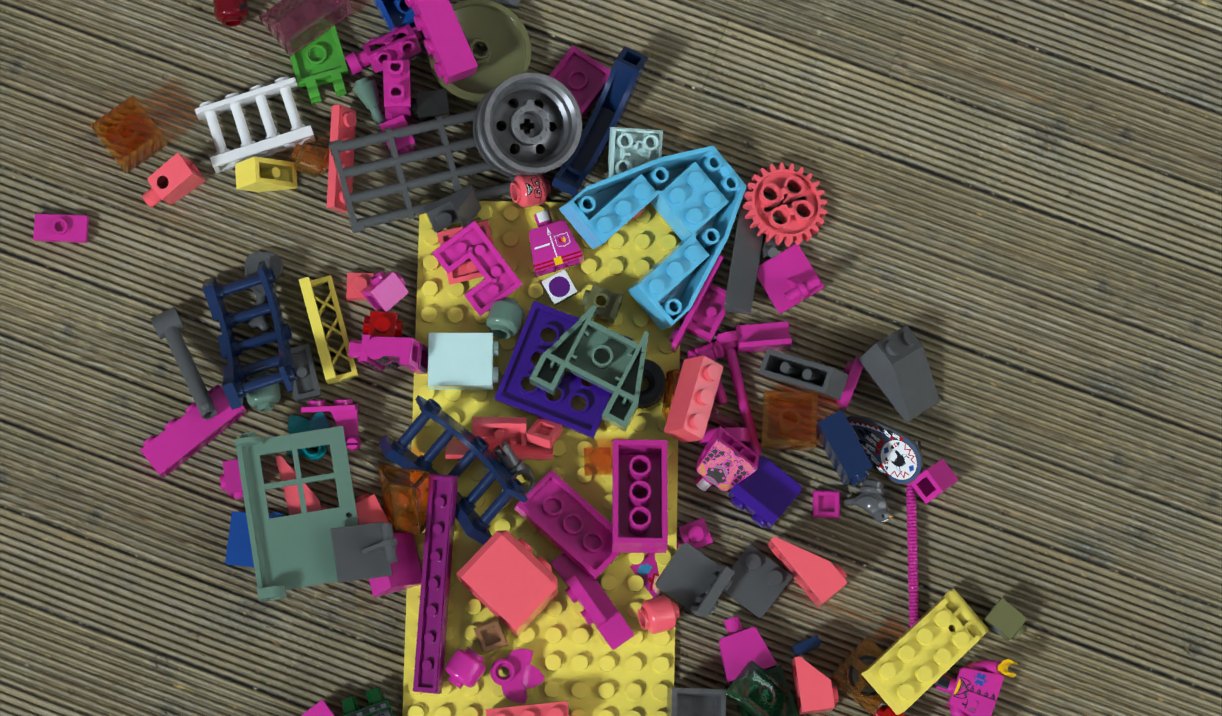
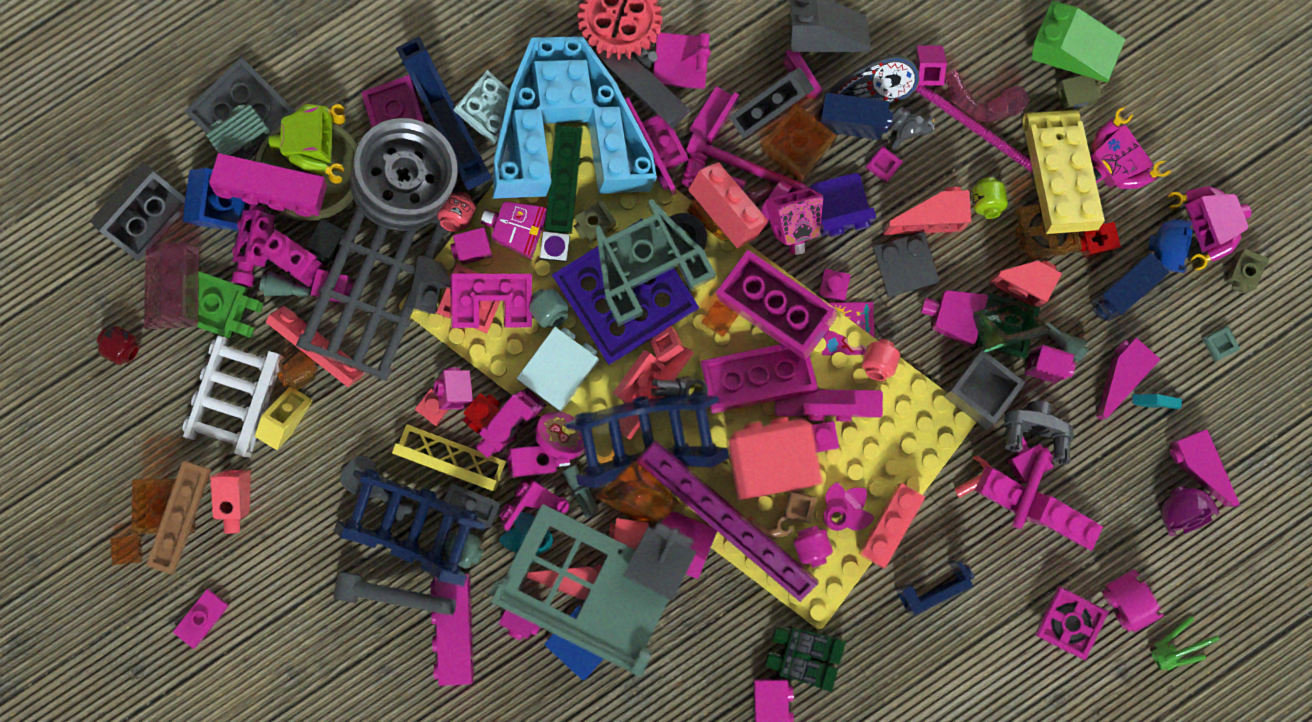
camera: 50 degrees left, 5 degrees up
(74, 131) = (126, 550): none -> clear orange tile
(128, 151) = (178, 517): none -> medium nougat plate
(364, 389) = (523, 462): none -> dark pink torso
(374, 453) = (581, 492): none -> sand green axle
(402, 396) = (556, 439): none -> tile
(453, 629) = (775, 532): none -> medium nougat piece
(501, 31) = (308, 139): none -> lime torso
(510, 221) = (471, 246): none -> dark pink brick
(559, 612) = (825, 437): none -> dark pink brick
(619, 255) = (564, 179): none -> dark green plate
(694, 580) = (874, 311): dark grey bracket -> none
(806, 646) = (987, 262): dark blue tile -> none
(861, 609) = (989, 197): none -> lime head
(953, 570) = (1010, 103): none -> clear pink piece
(1043, 587) = (1077, 43): none -> bright green slope

